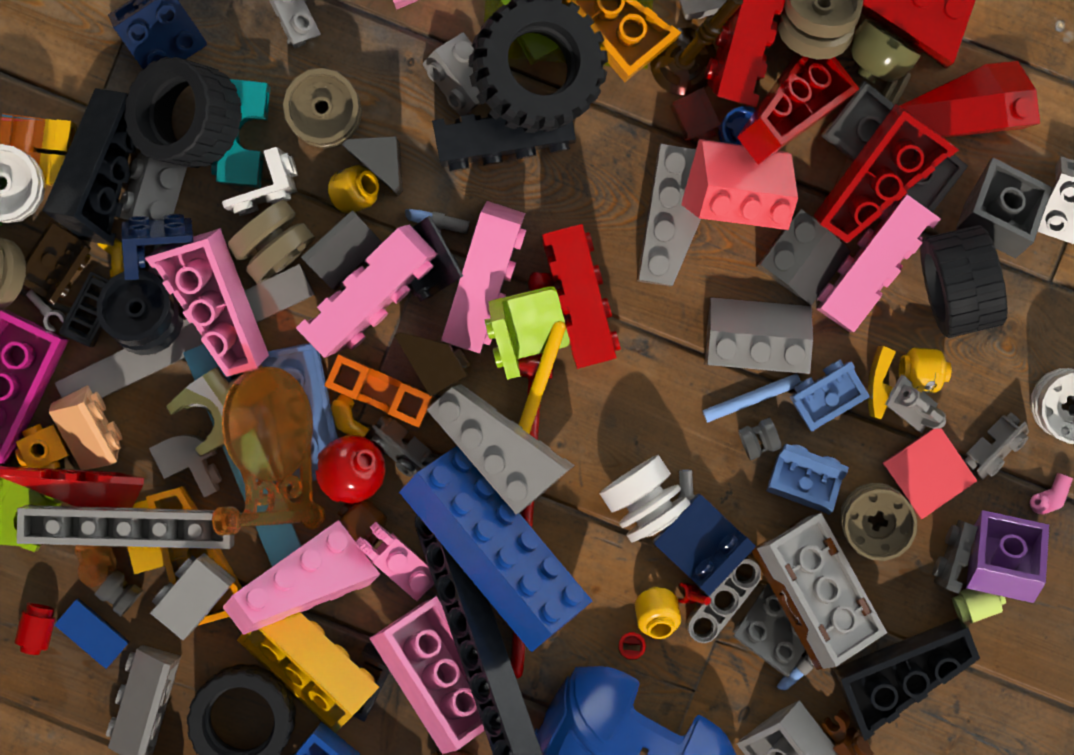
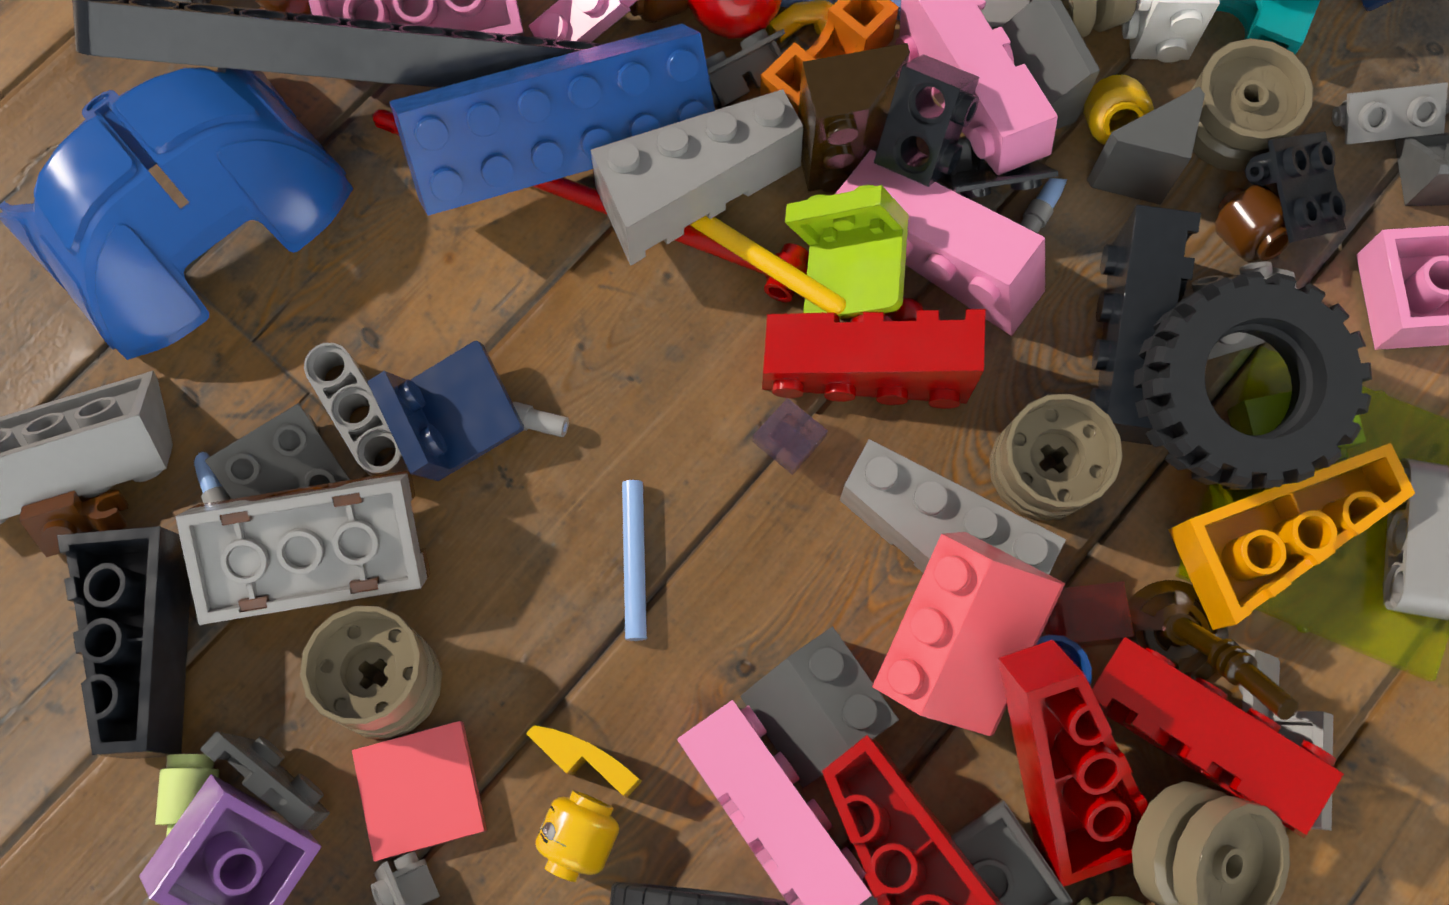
camera: 115 degrees right, 15 degrees down
(369, 57) = (1304, 183): none -> black hinge
(401, 80) = (1252, 223): none -> reddish brown head
(425, 308) = (917, 115): none -> black brick
(629, 160) = (1077, 438): none -> dark tan wheel
(632, 639) = (339, 264): red hinge -> none
(645, 499) = (543, 344): white wheel -> none
(647, 328) = (790, 436): none -> tile
(657, 612) = (378, 314): yellow head -> none
(693, 595) = (382, 364): red hand -> none
(759, 336) = (721, 597): light grey slope -> none
(767, 436) = (568, 545): dark grey wheel -> none
(807, 478) = (482, 594): medium blue bracket -> none
(829, 395) = (594, 673): medium blue bracket -> none
(915, 406) = (526, 798): light grey hinge -> none

